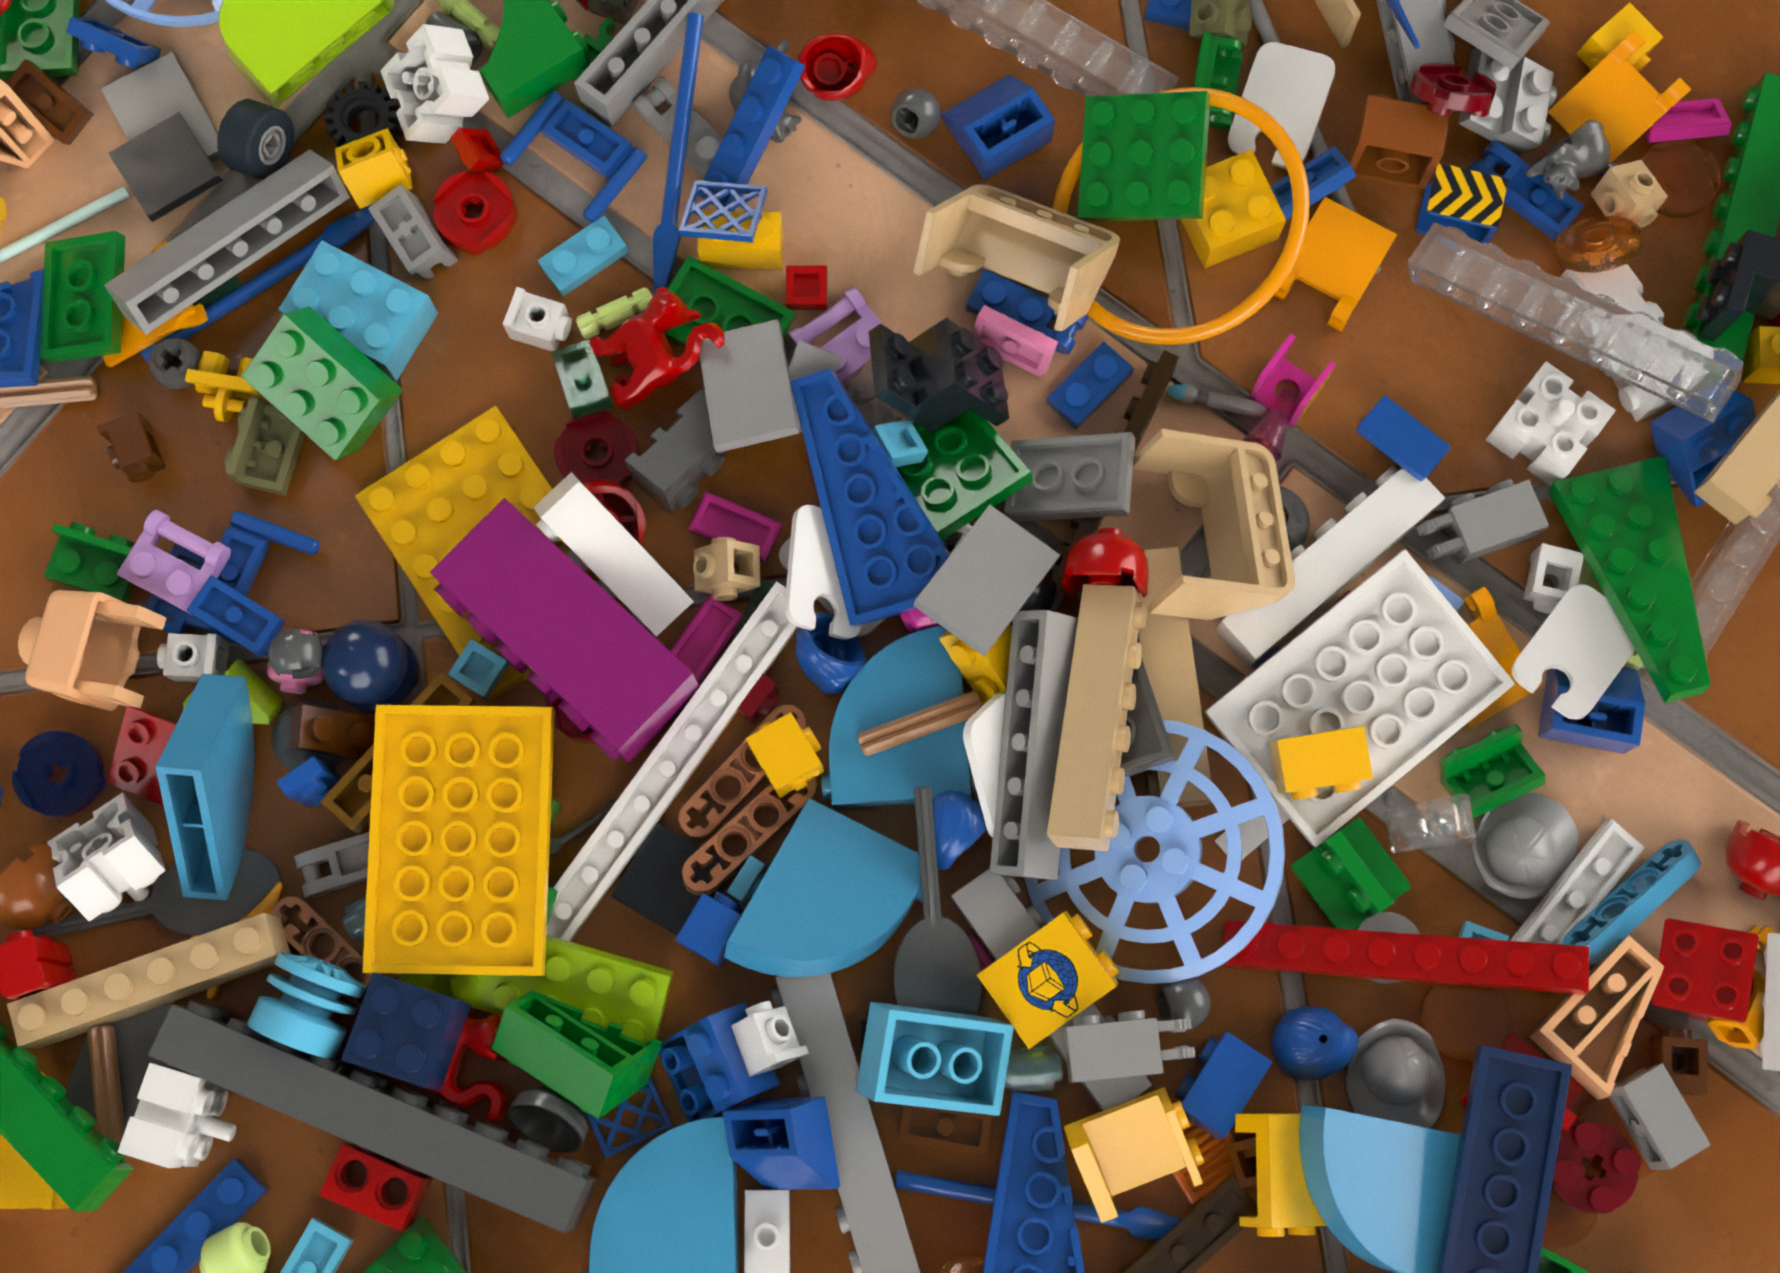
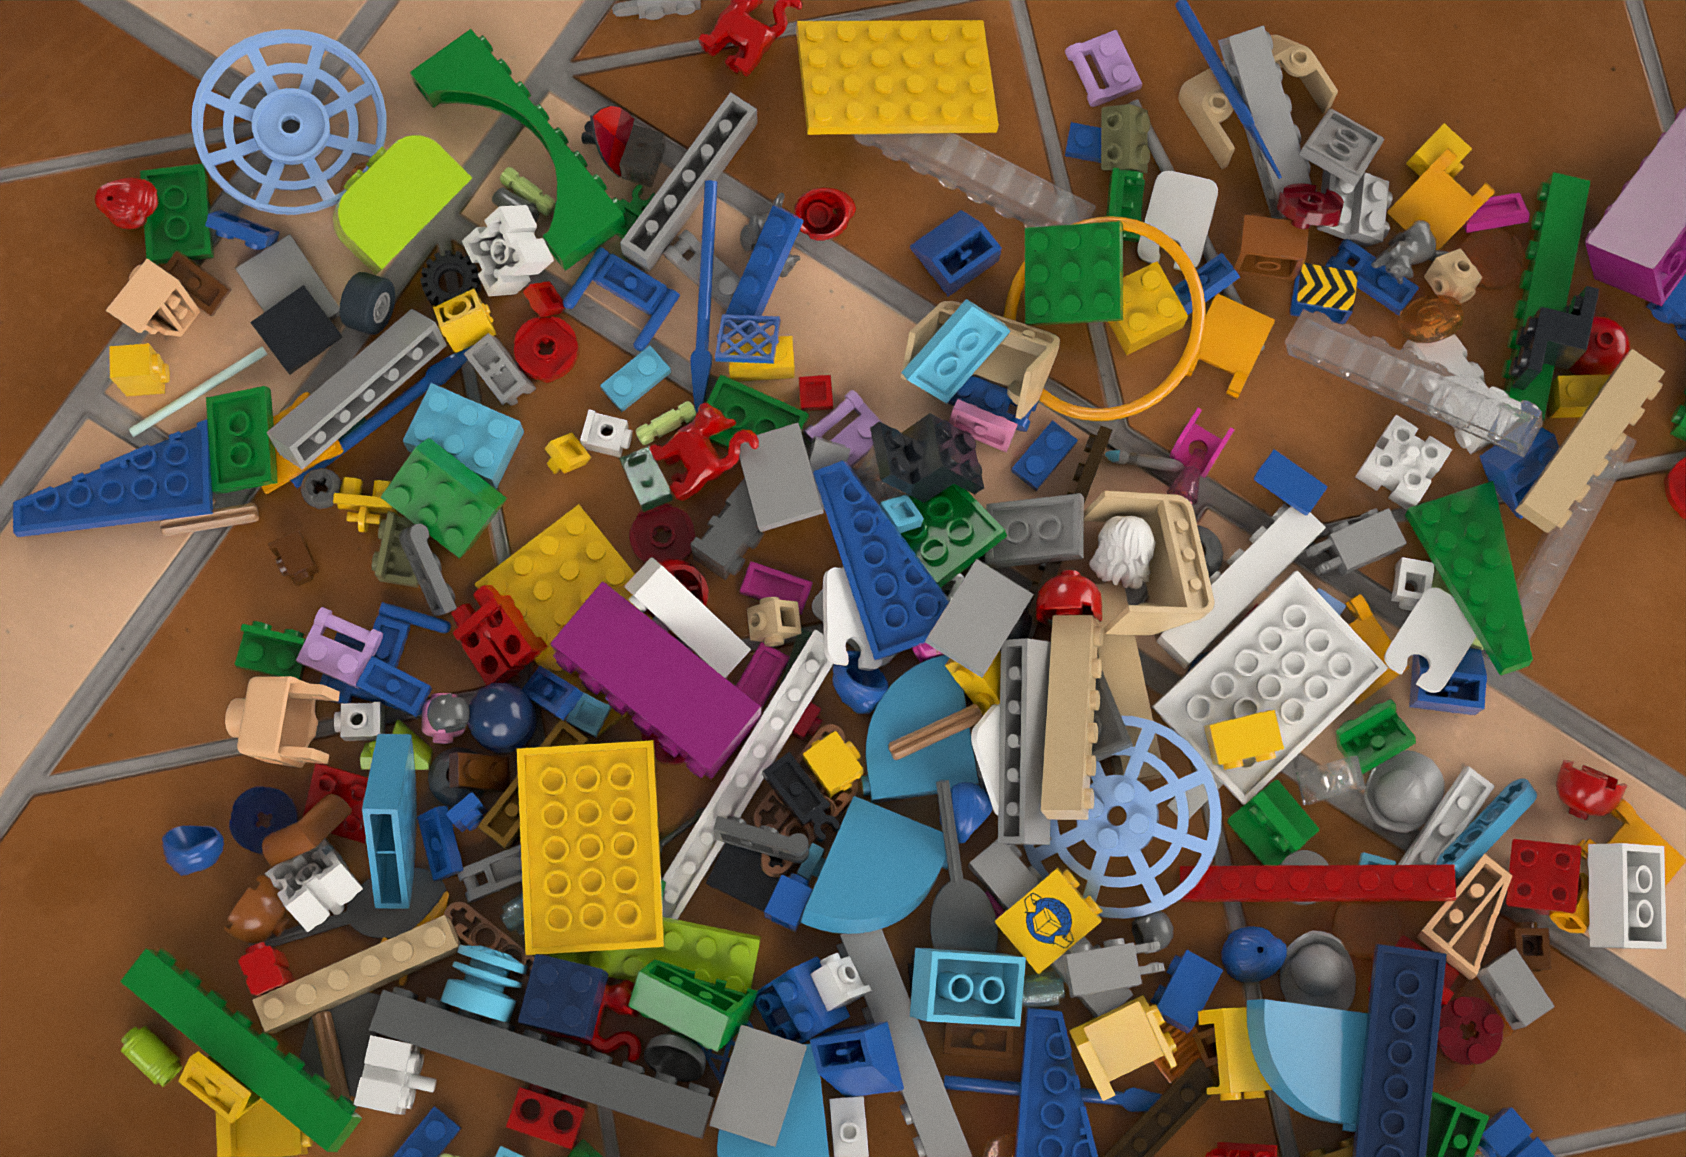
camera: 10 degrees left, 0 degrees up
(101, 789) = (307, 832): none -> dark orange brick
(276, 822) = (440, 843): none -> blue plate
(293, 472) = (427, 569): none -> dark grey plate
(372, 562) = (496, 636): none -> red hips
(434, 638) = (552, 693): none -> blue plate
(485, 341) = (566, 454): none -> yellow tile
(649, 1167) = (758, 1085): none -> light grey tile
(683, 846) = (761, 839): none -> dark grey plate
(738, 791) = (800, 794): none -> black plate
(915, 113) = (890, 247): dark grey piece -> none
(985, 241) = (956, 351): none -> medium azure plate
(1182, 510) = (1124, 551): none -> white hair

